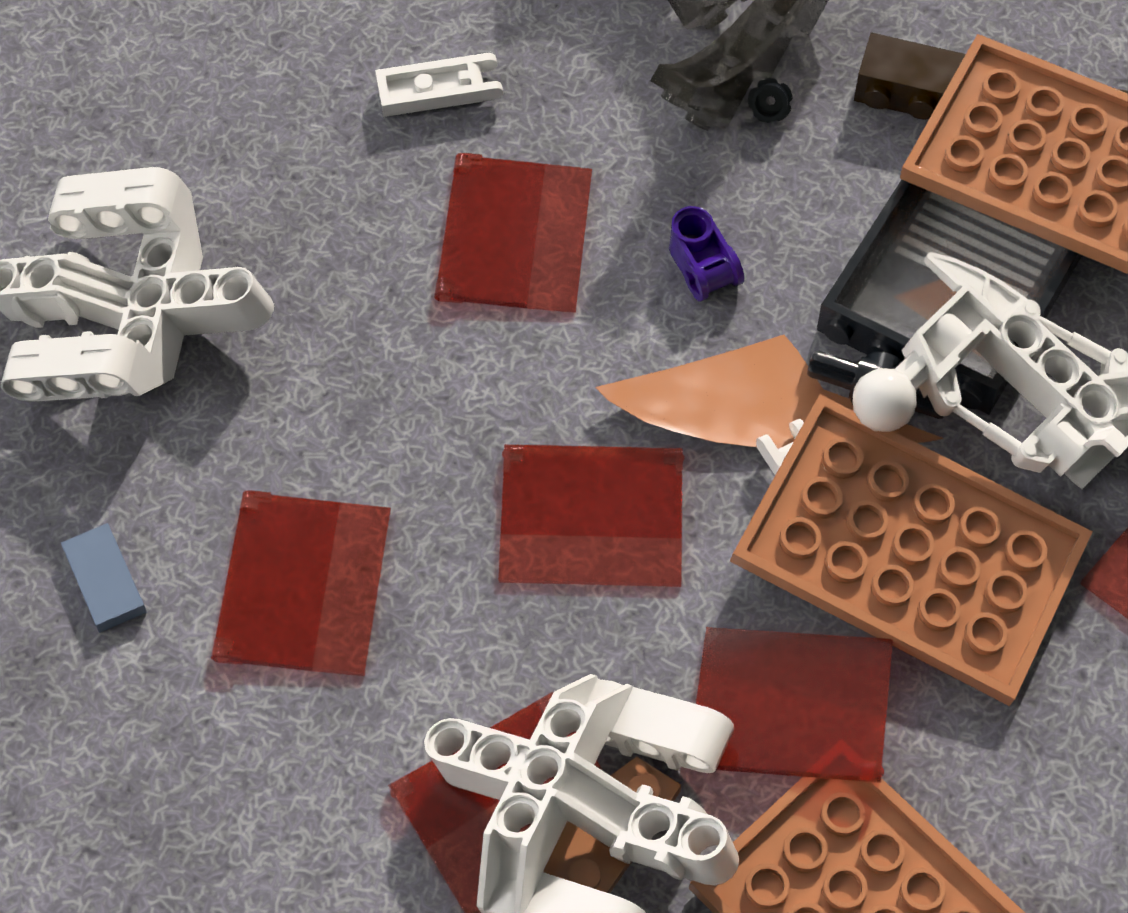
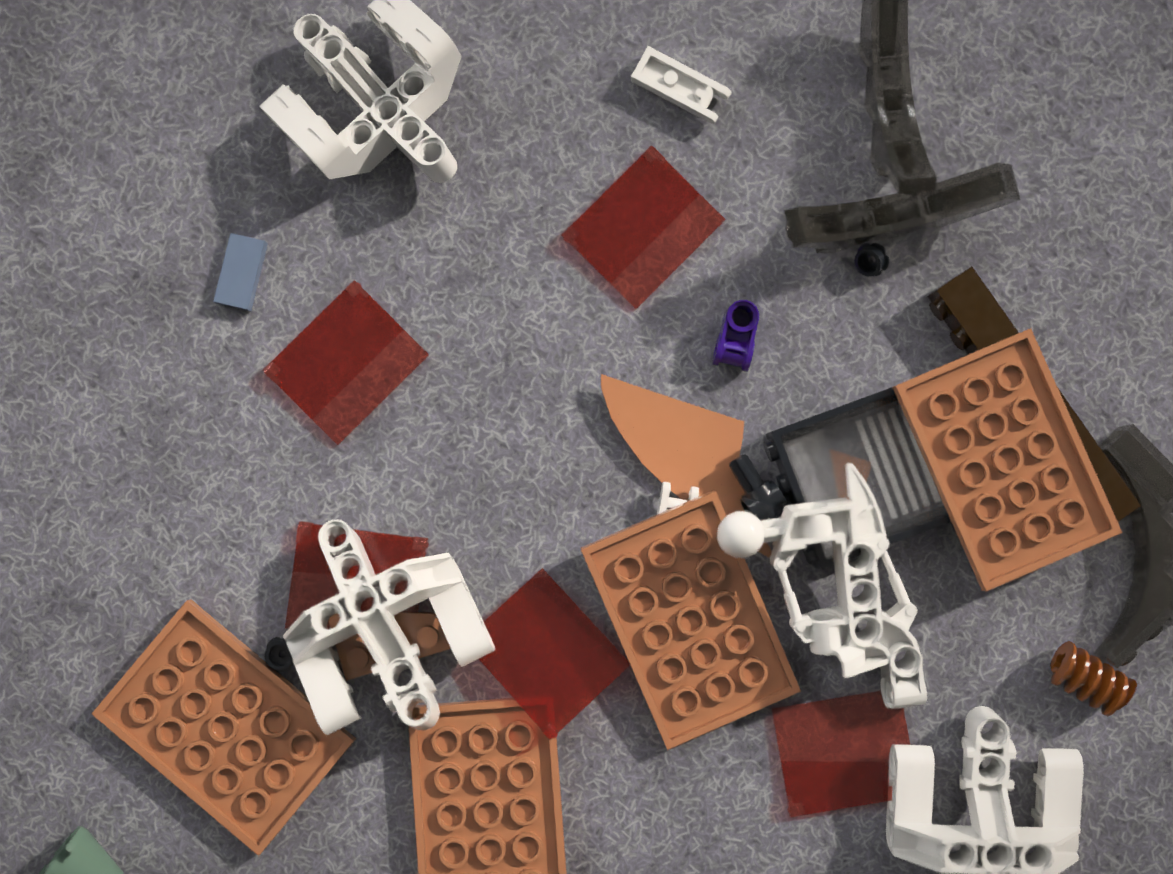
camera: 35 degrees right, 25 degrees up
(591, 515) = (536, 449): clear red piece -> none

